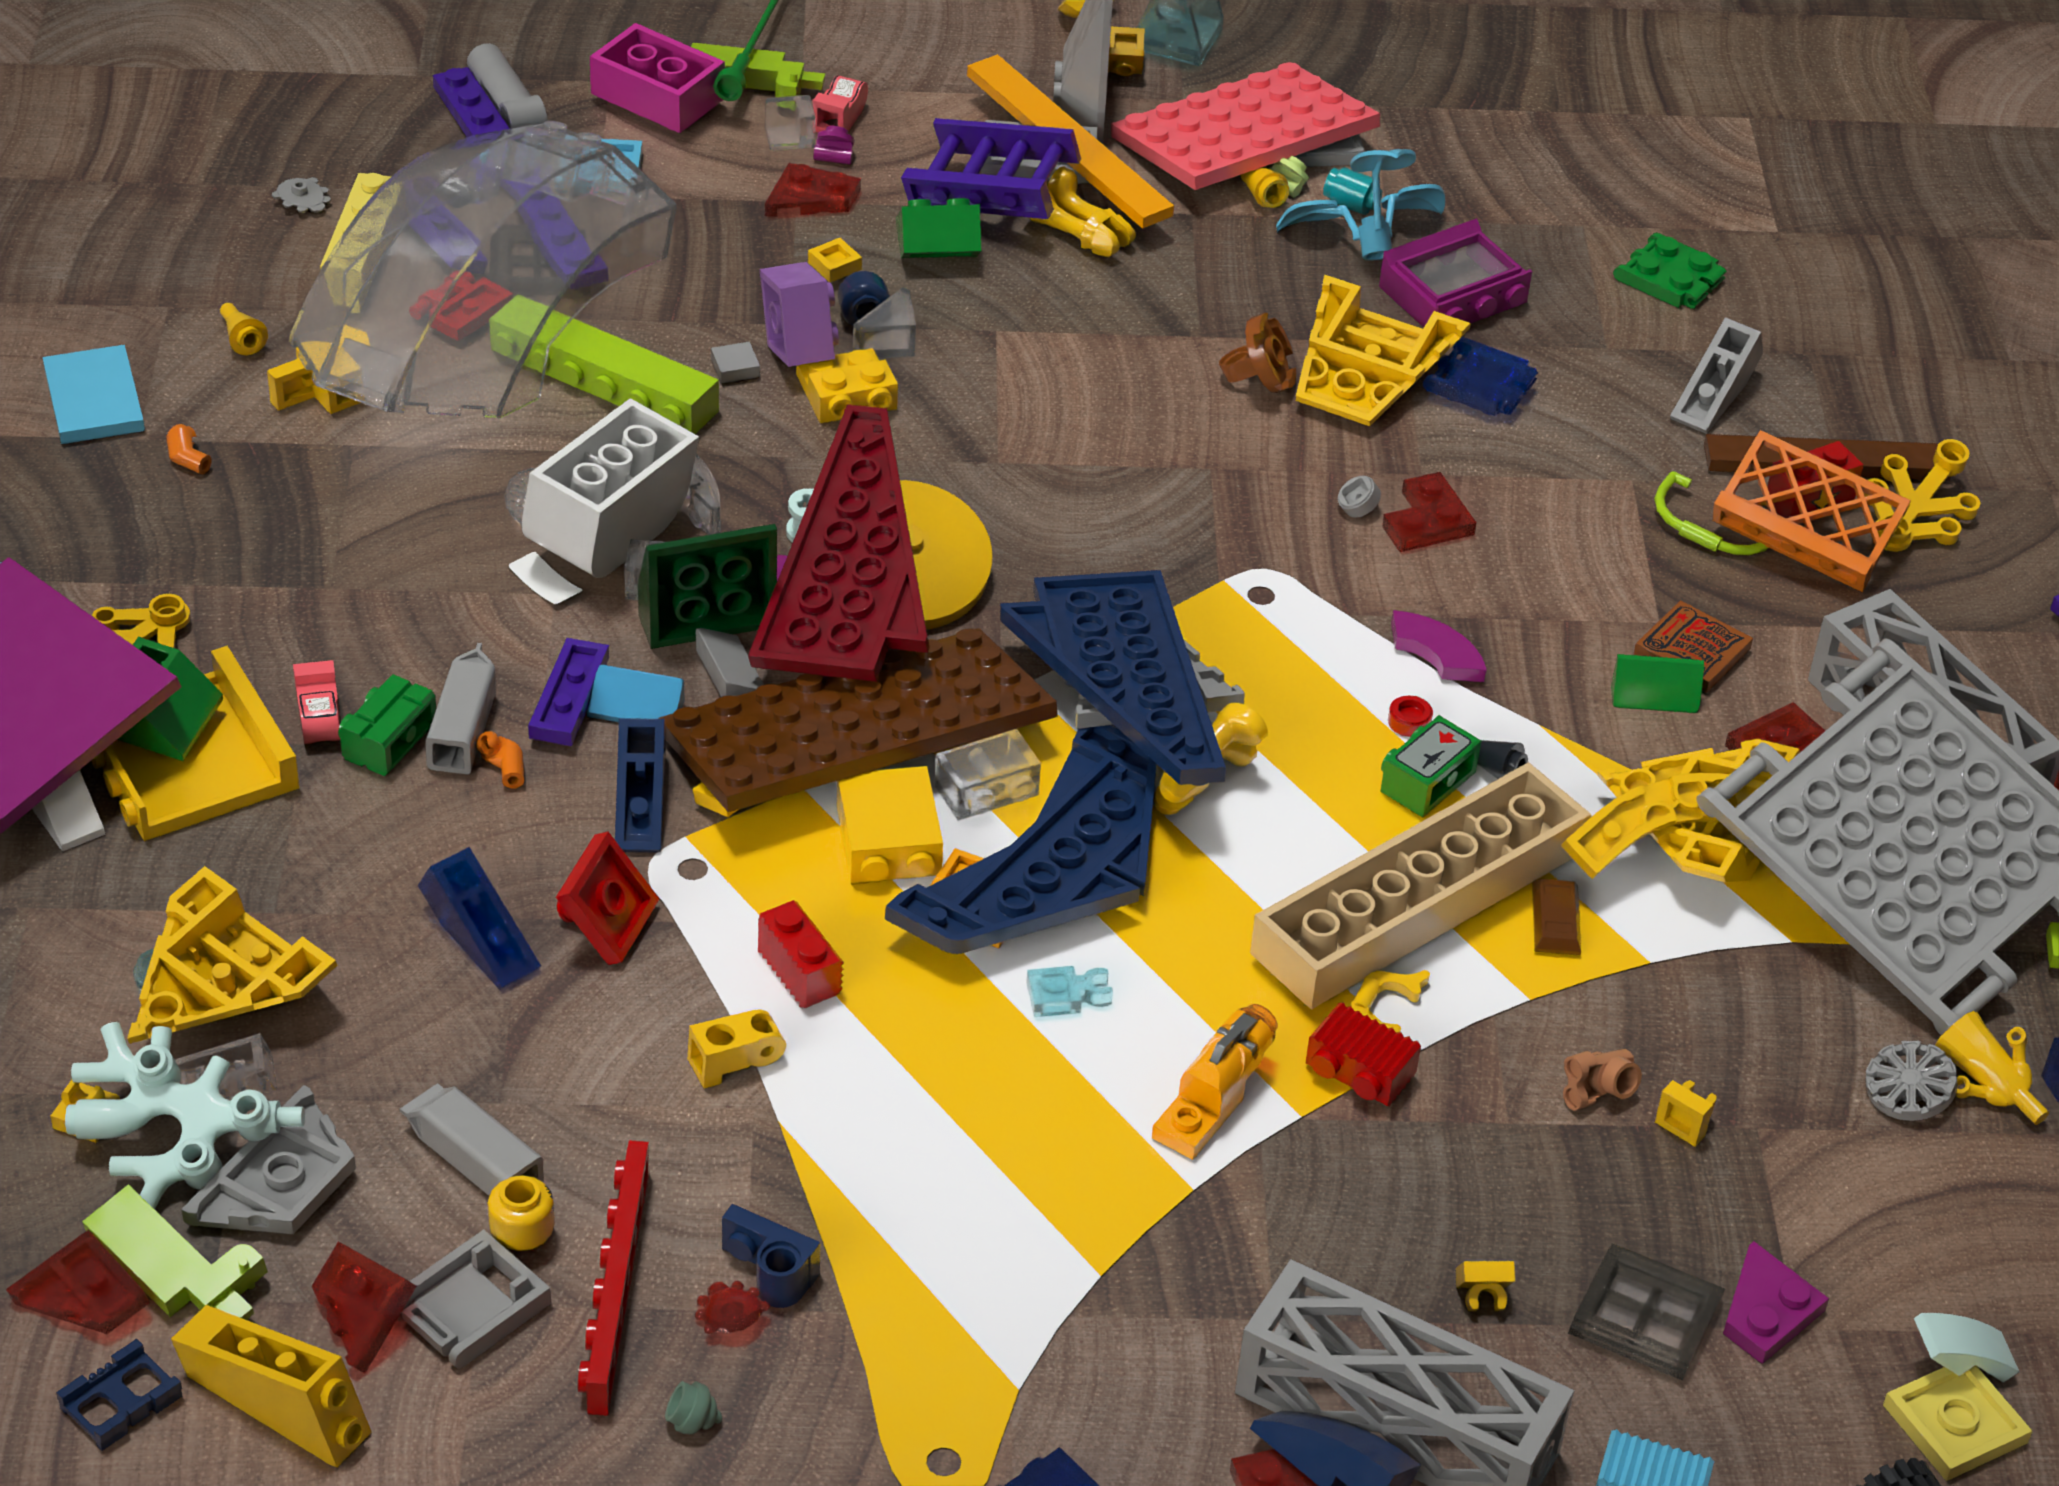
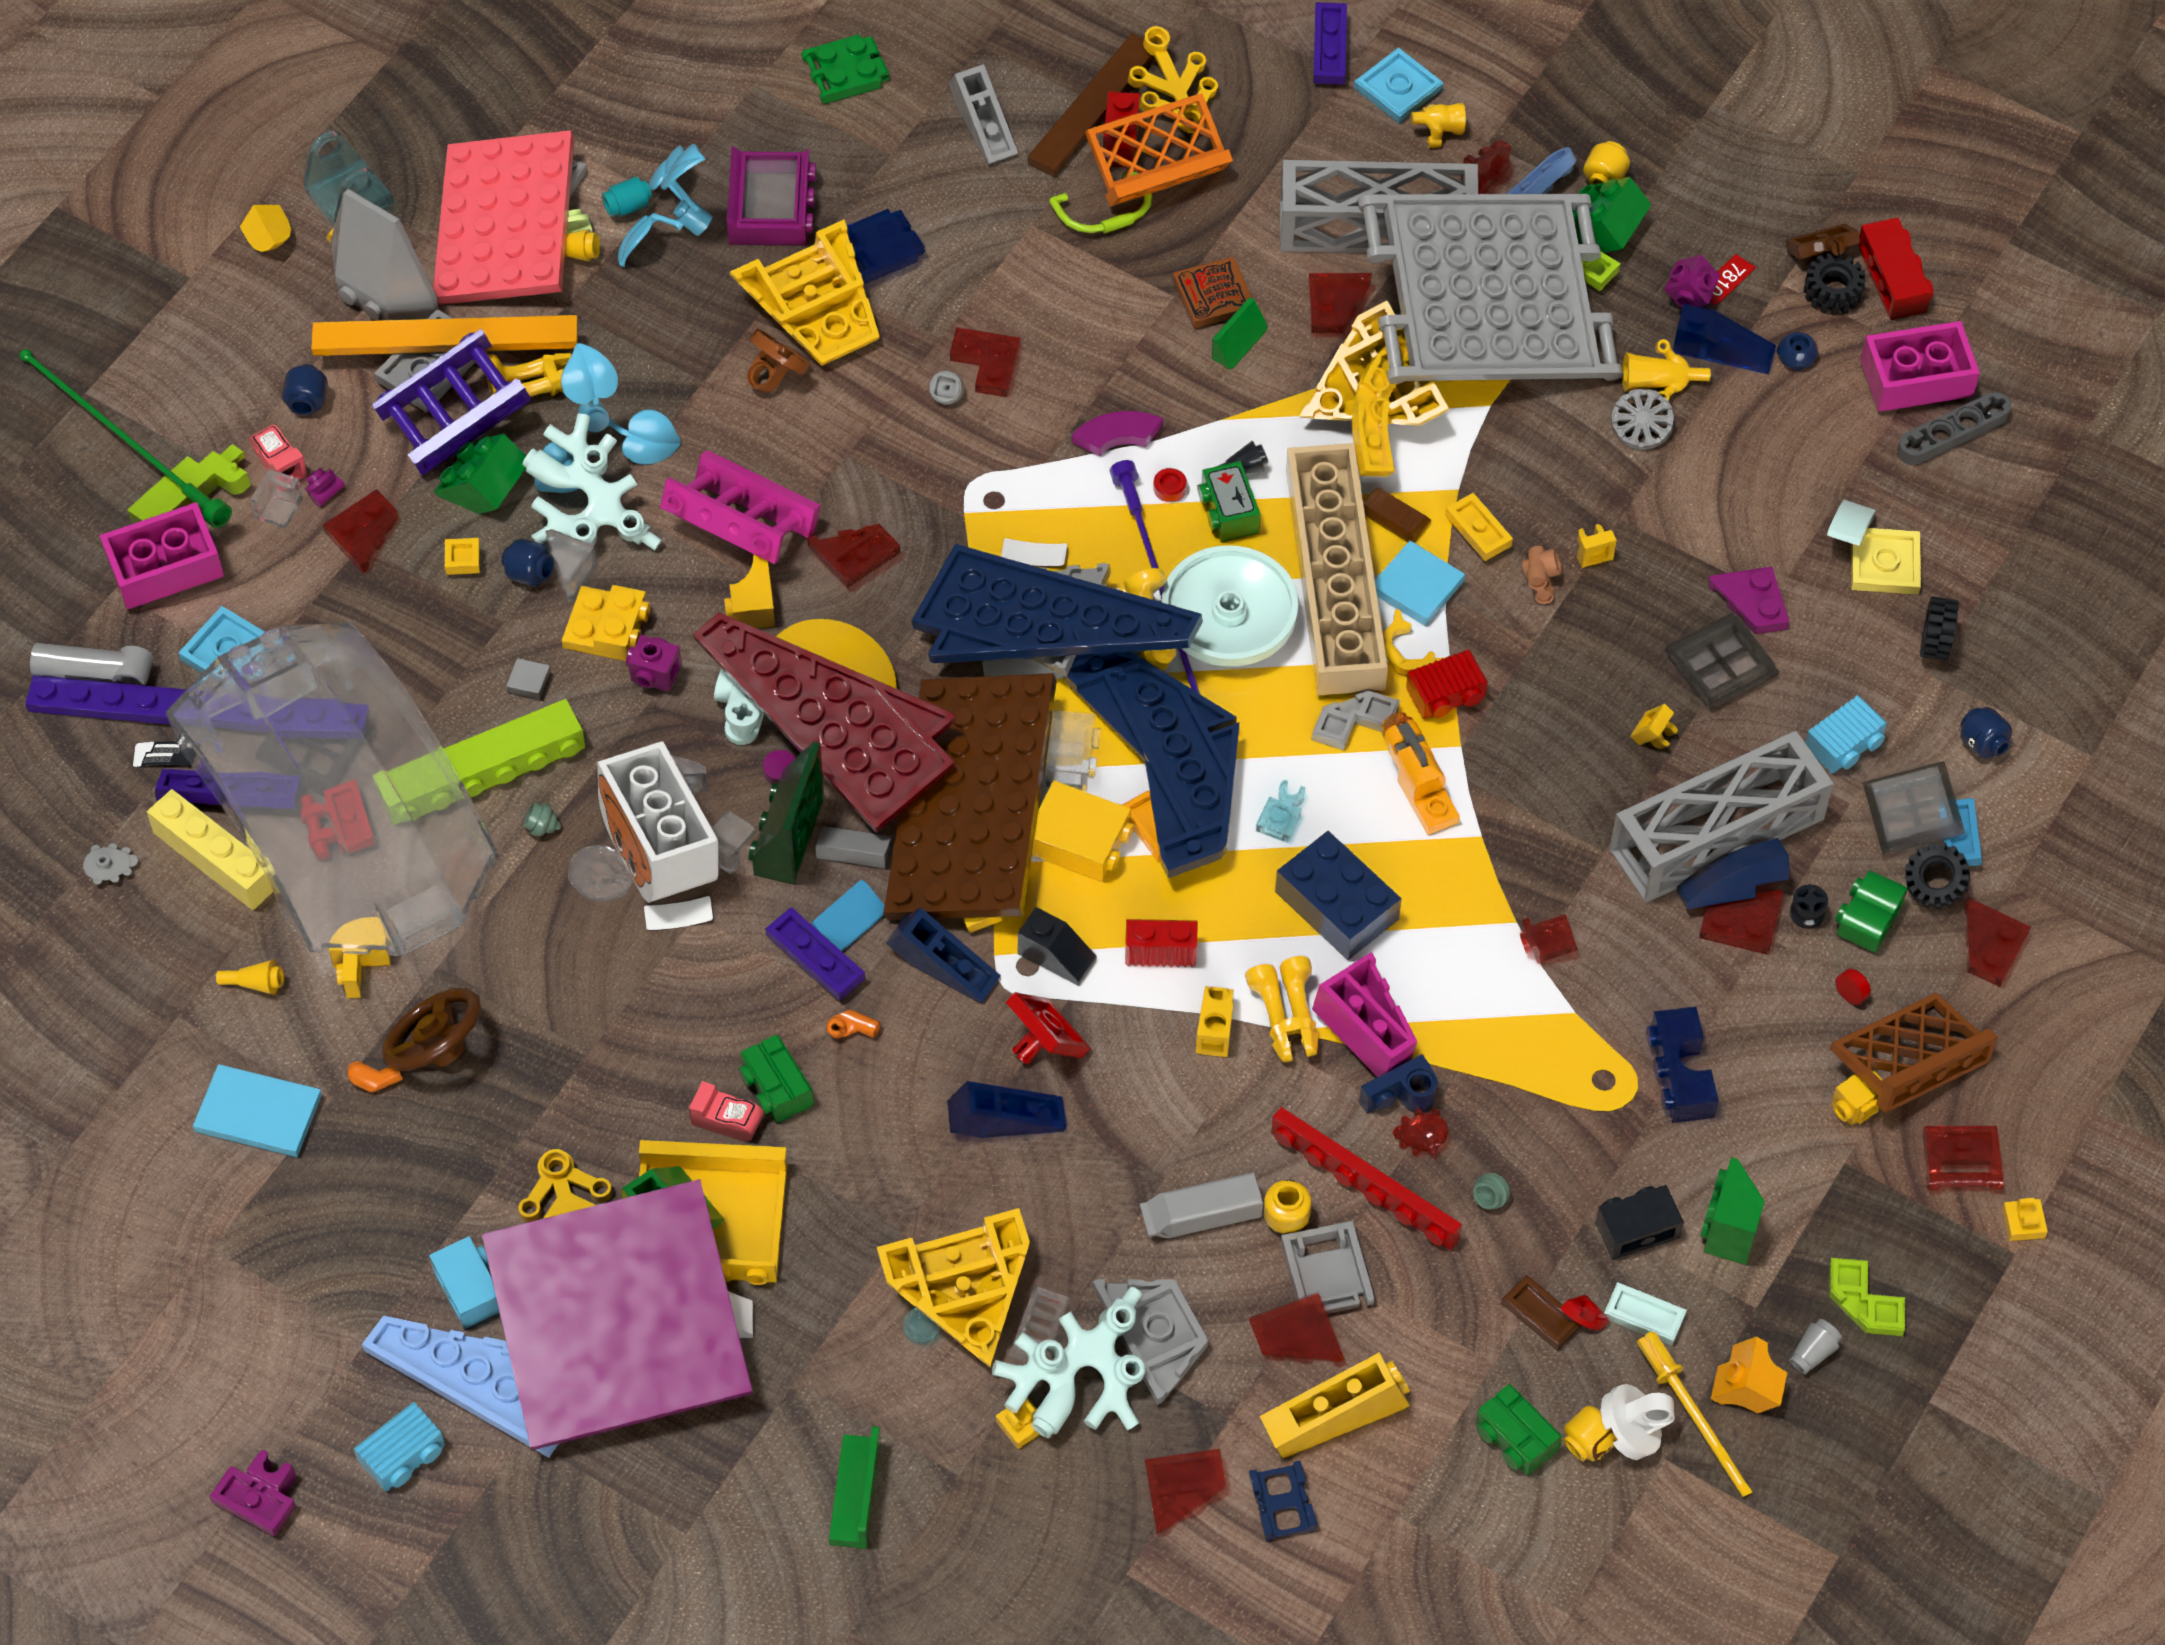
camera: 55 degrees left, 15 degrees up
(167, 1263) = (1196, 1426): lime piece -> none
(253, 460) = (436, 1035): none -> reddish brown piece
(461, 713) = (797, 1027): light grey piece -> none
(569, 427) = (541, 819): none -> sand green plate
(722, 868) = (1055, 946): none -> black slope
(798, 314) = (537, 611): medium lavender brick -> none
(815, 424) = (654, 663): none -> magenta brick
(838, 1084) = (1294, 974): none -> yellow piece
(842, 1167) = (1365, 1017): none -> dark pink wedge
(927, 89) = (304, 389): none -> dark blue head
(969, 464) = (752, 597): none -> yellow arch
(972, 320) = (603, 497): none -> light aqua plant
(986, 1078) = (1338, 895): none -> dark blue brick
(1087, 397) = (748, 490): none -> dark pink fence
(1089, 312) = (591, 377): none -> medium azure plant
(1089, 1305) = (1548, 938): none -> clear red bracket
(1091, 516) = (855, 552): none -> clear red wing
(1220, 648) = (1034, 553): none -> white sticker
(1235, 986) = (1339, 719): none -> light grey tile
(1287, 816) = (1243, 602): none -> light aqua dish
(1382, 672) = (1124, 475): none -> dark purple piece
(1483, 976) = (1418, 583): none -> medium azure tile
(1609, 995) = (1479, 526): none -> yellow plate

